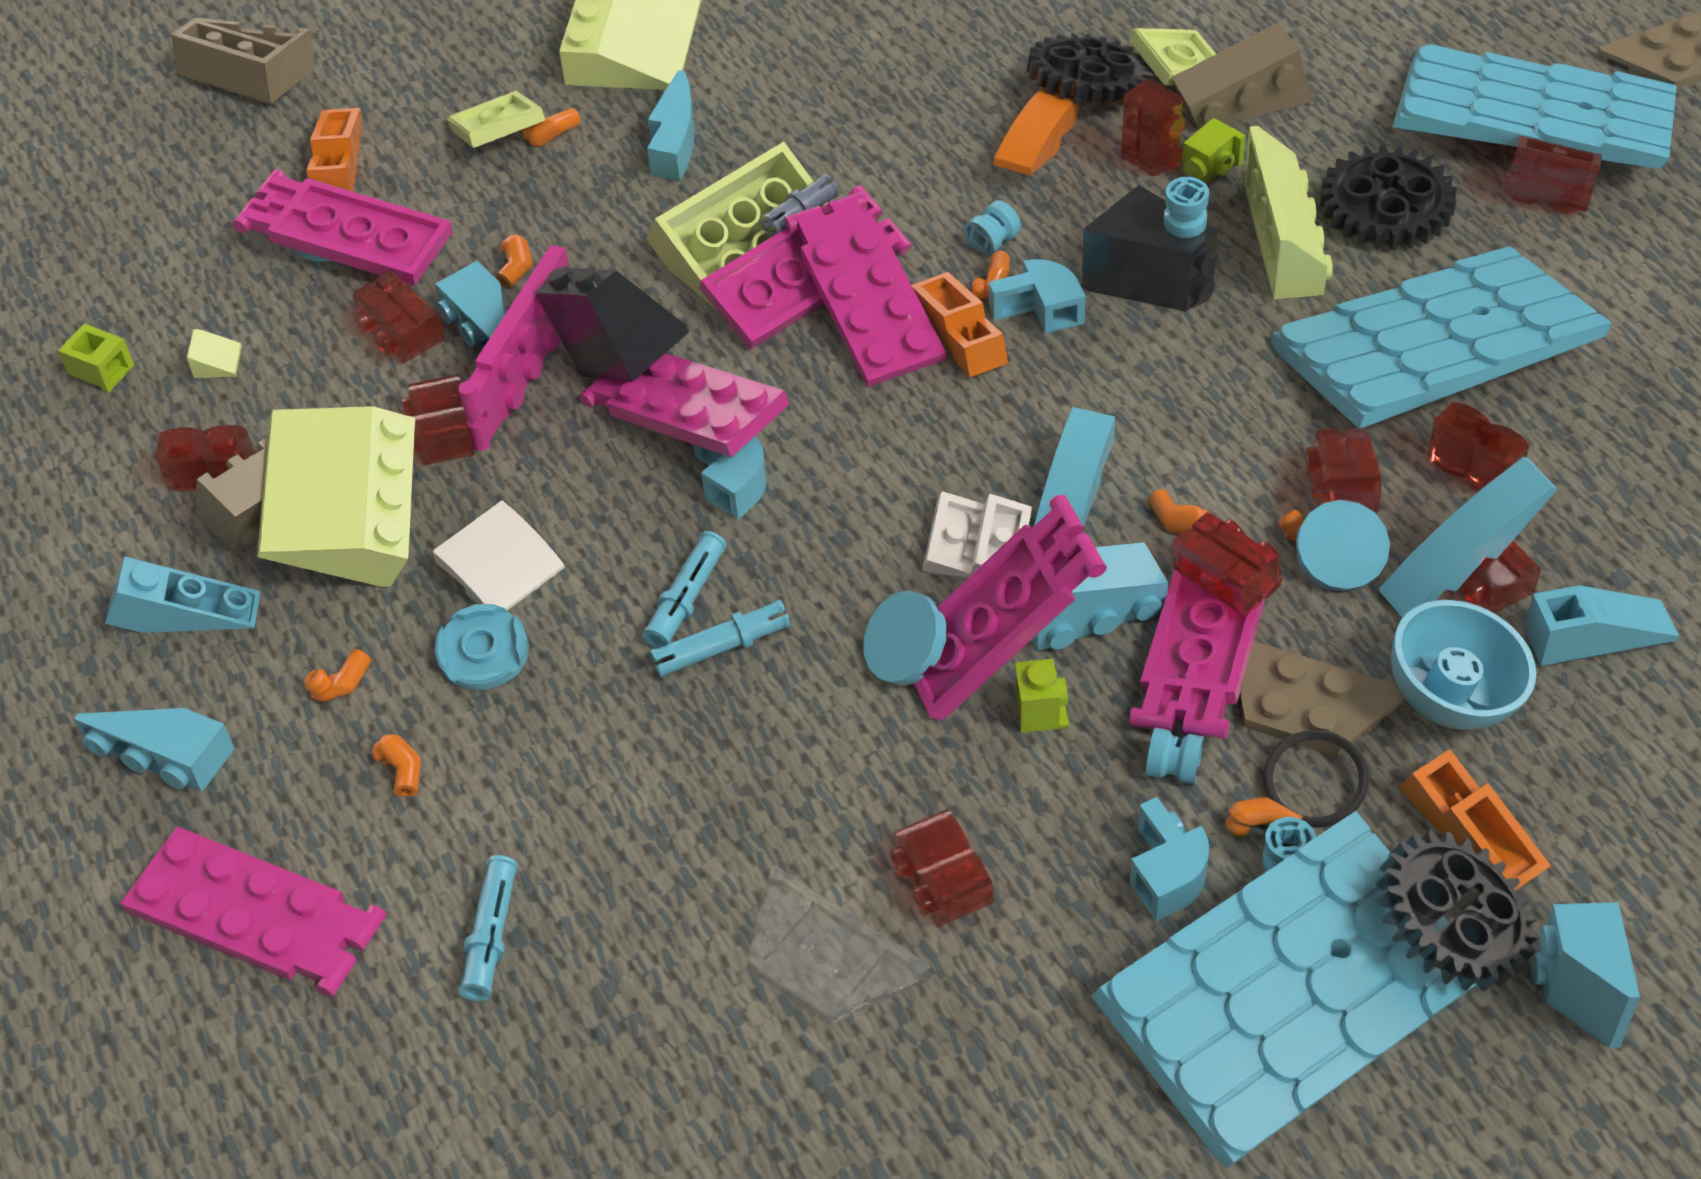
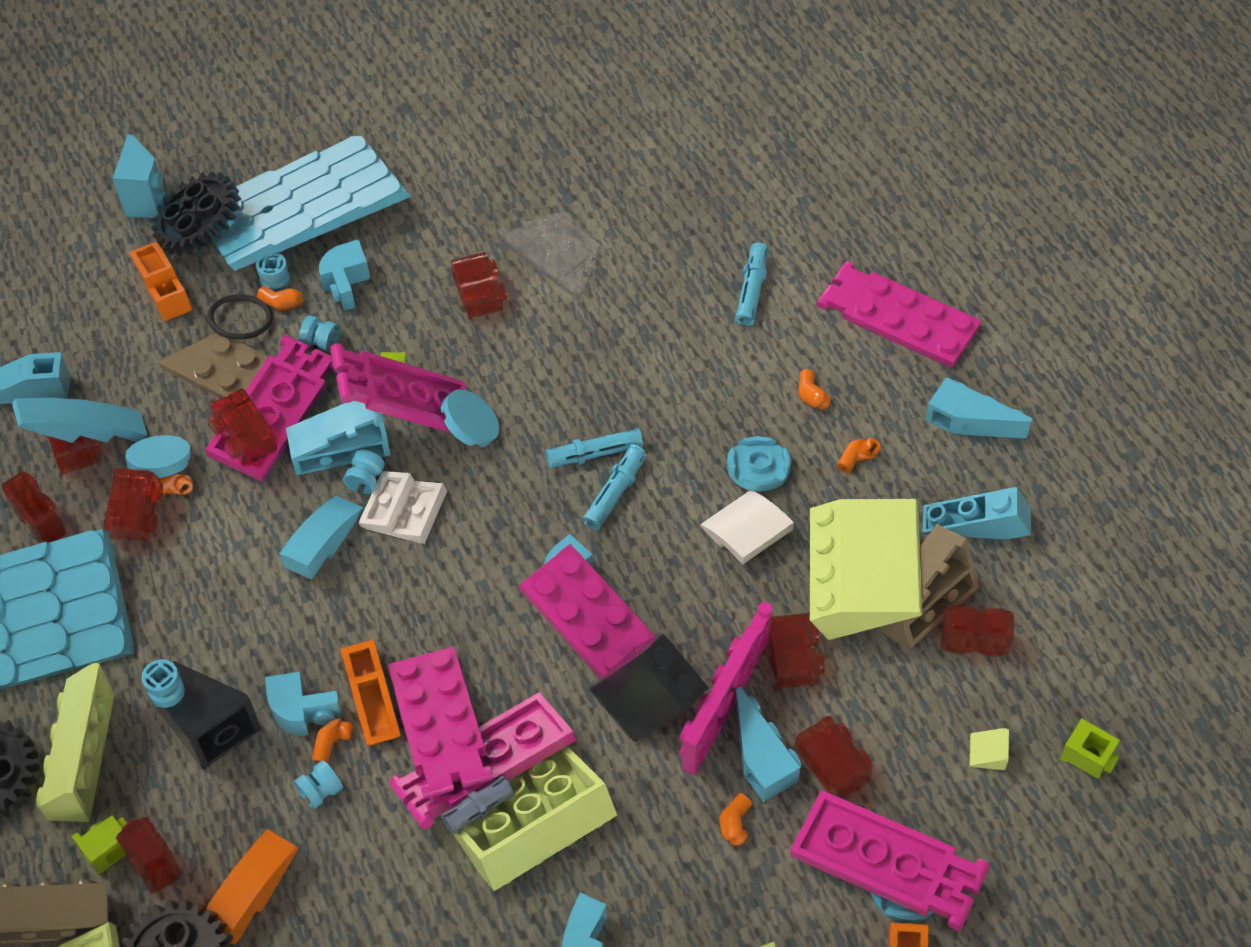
camera: 175 degrees left, 5 degrees up
(1173, 517) = (252, 497): orange arm -> none
(1461, 665) = (125, 344): medium azure piece -> none

